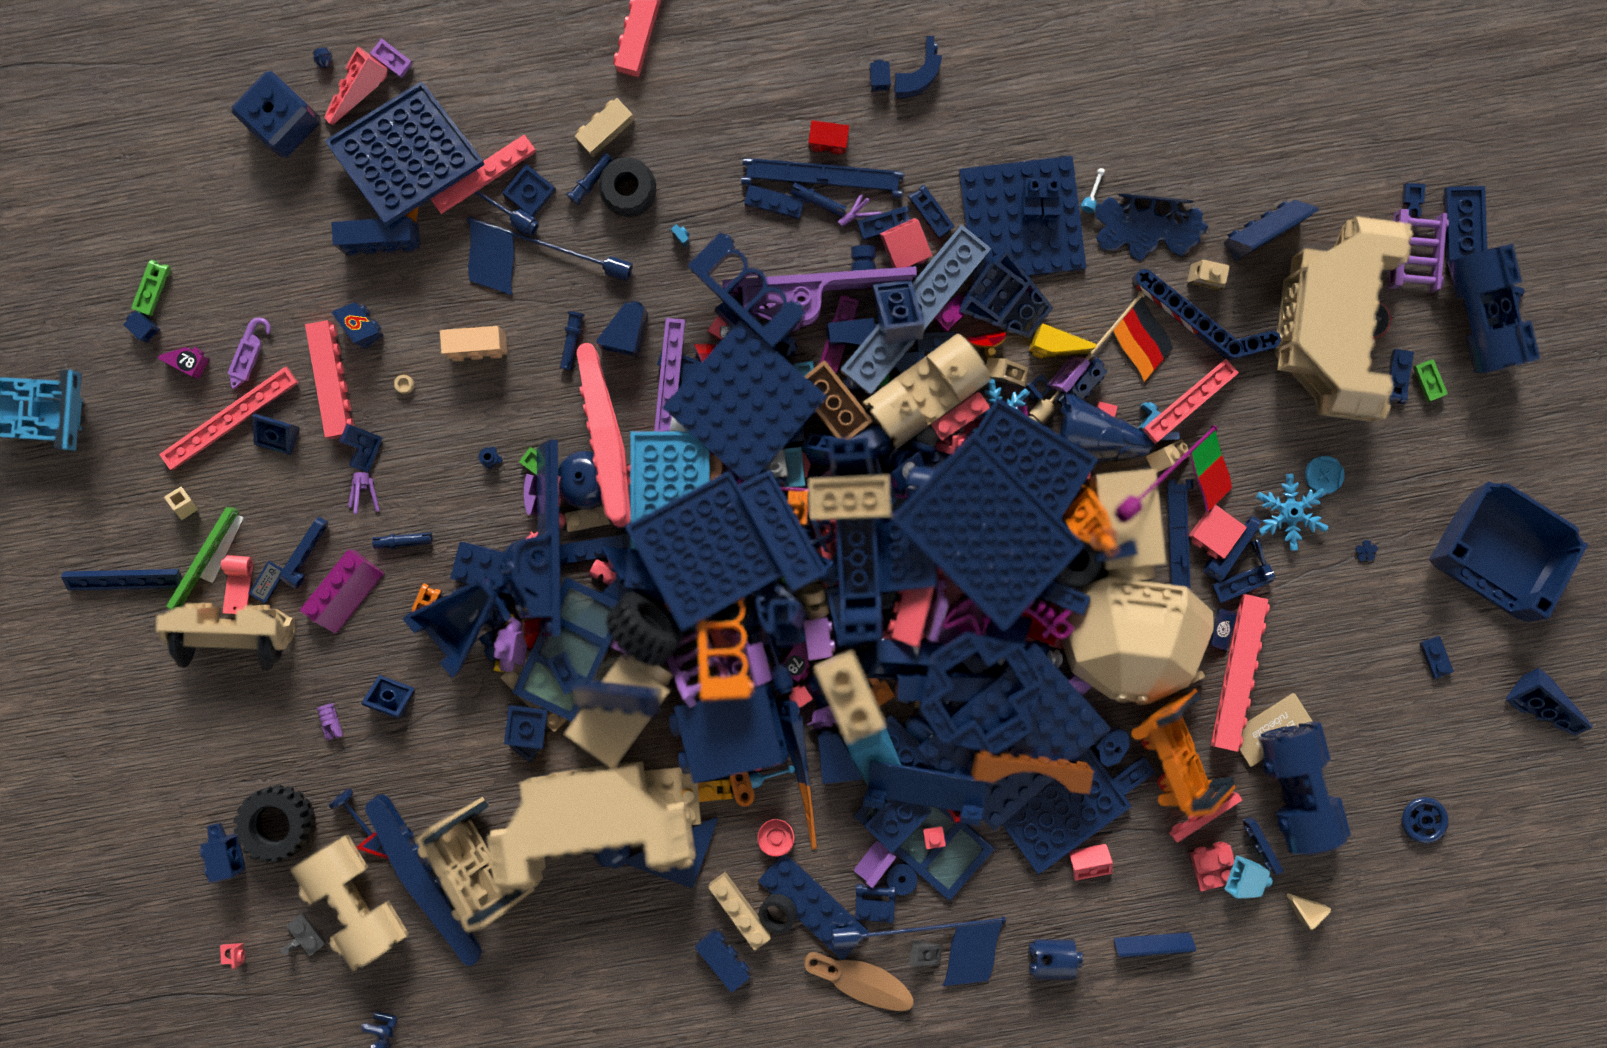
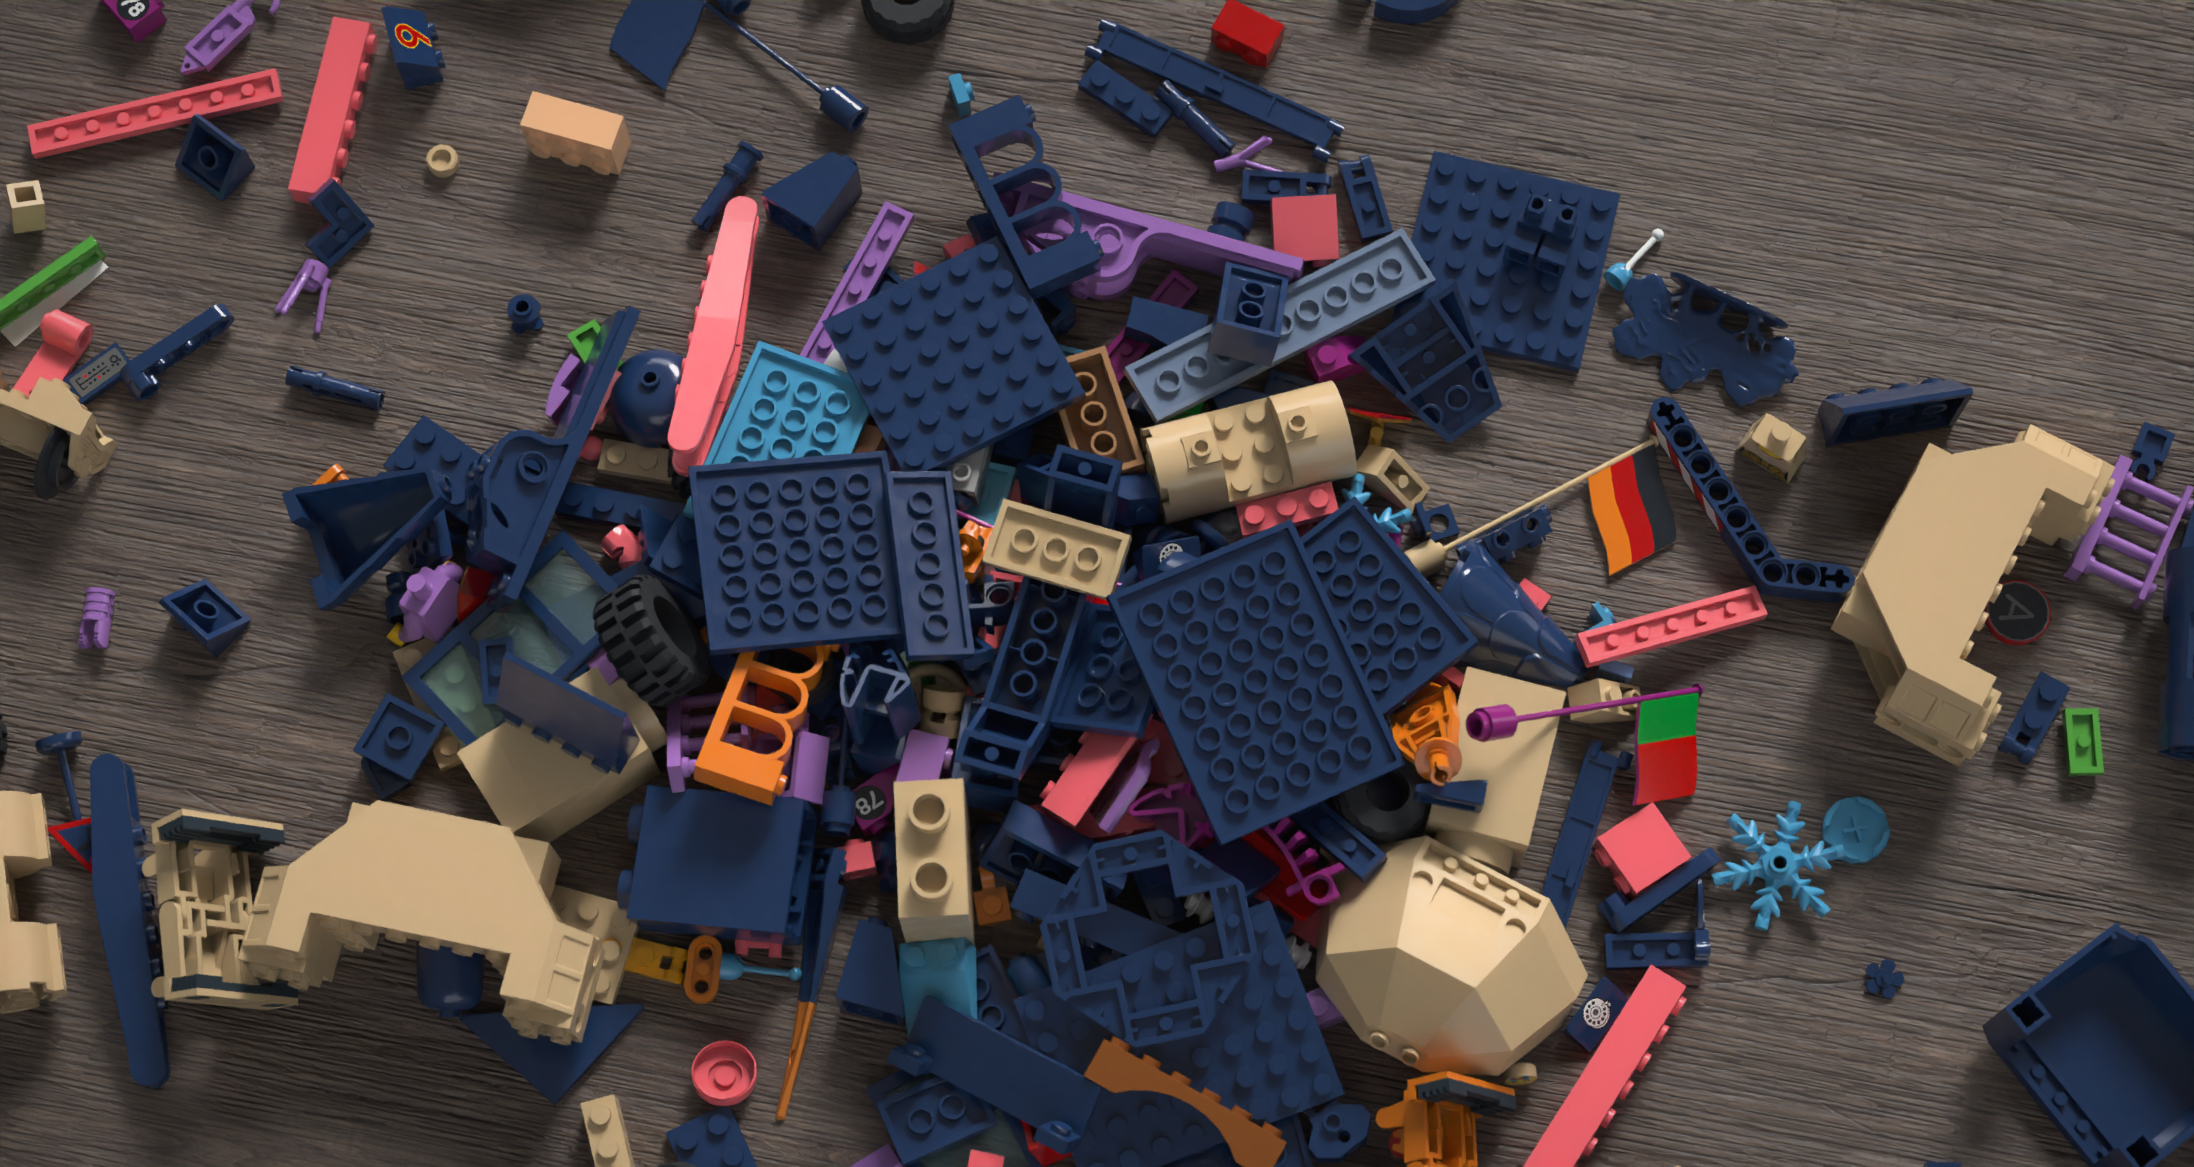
camera: 20 degrees right, 15 degrees down
(342, 591) = (207, 428): magenta slope -> none
(823, 718) = (879, 904): medium lavender hinge -> none
(1054, 343) = (1489, 462): yellow slope -> none
(1069, 373) = (1480, 520): medium lavender plate -> none

